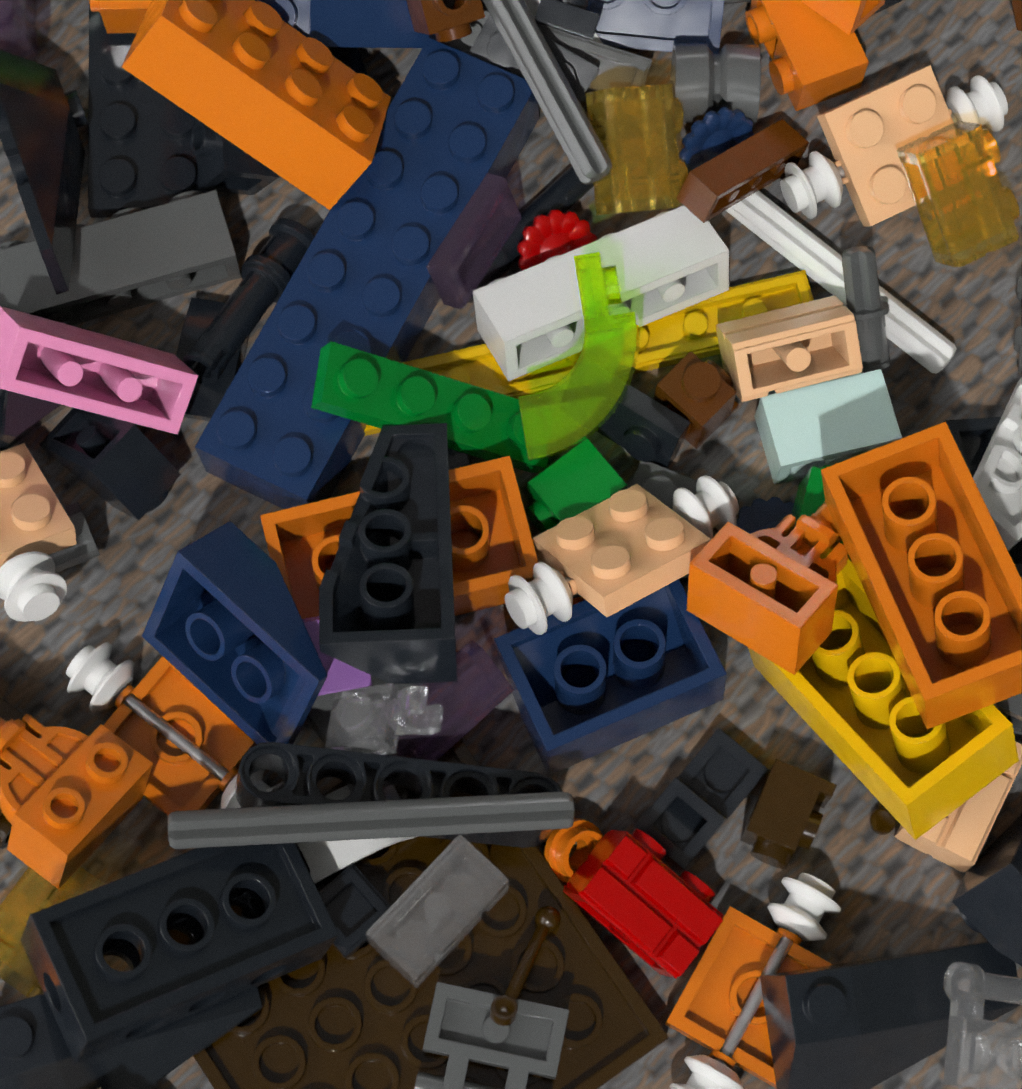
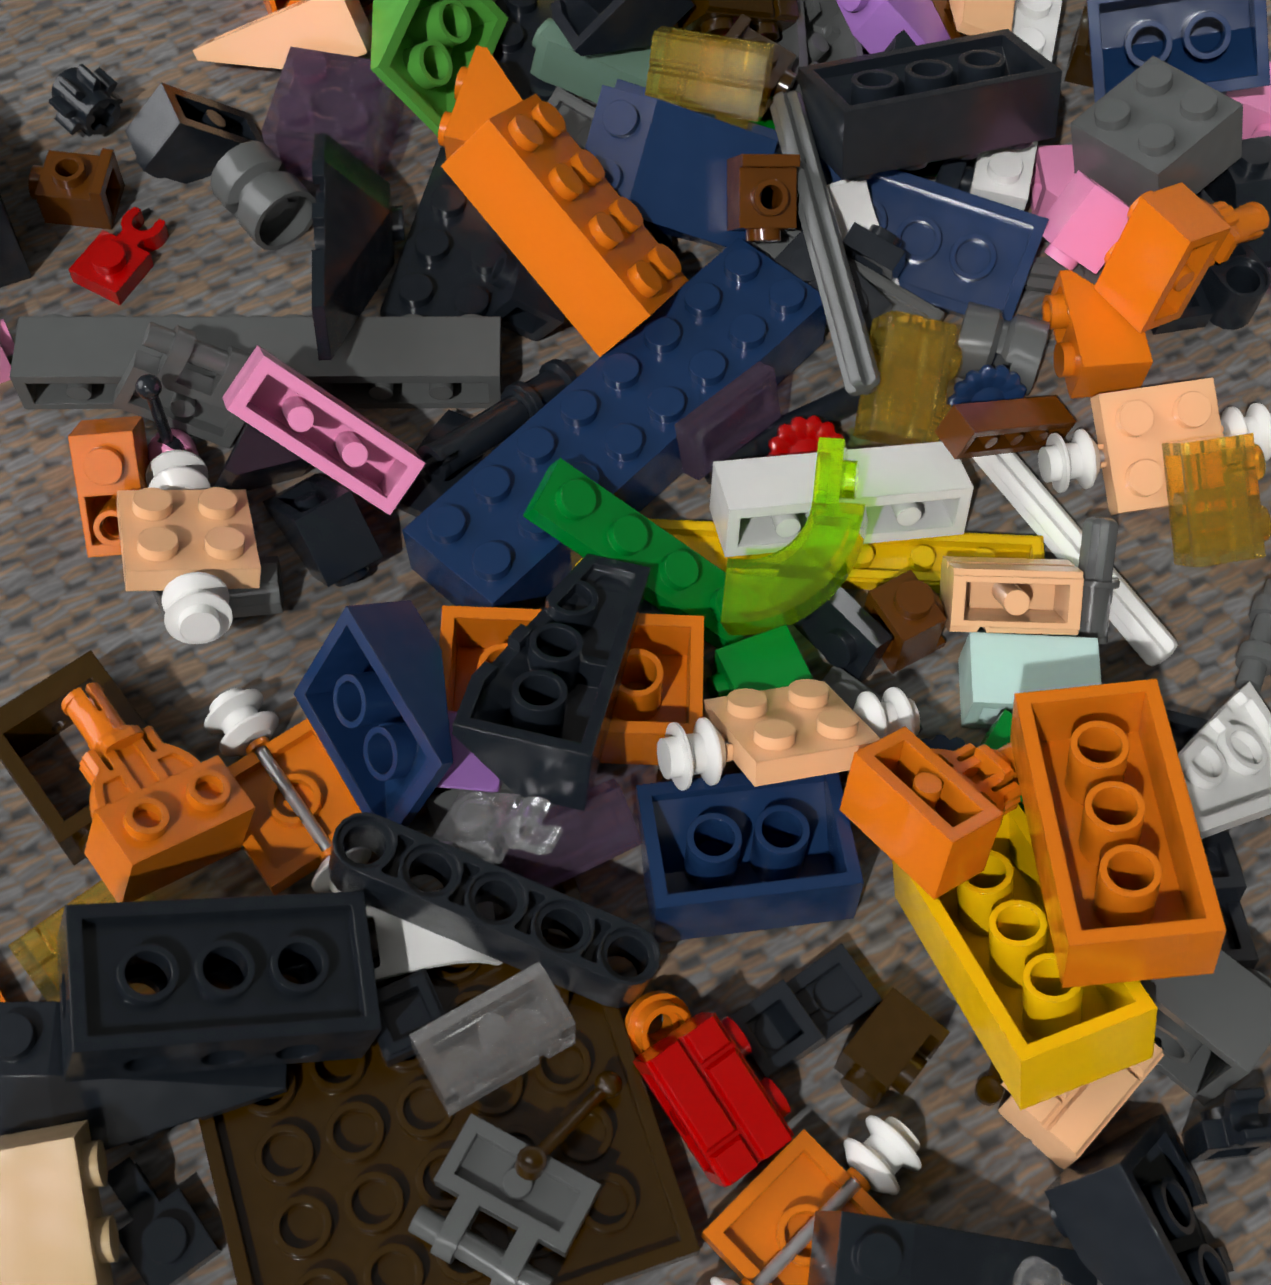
camera: 15 degrees right, 10 degrees down
(370, 820) = (451, 918): dark grey axle -> none

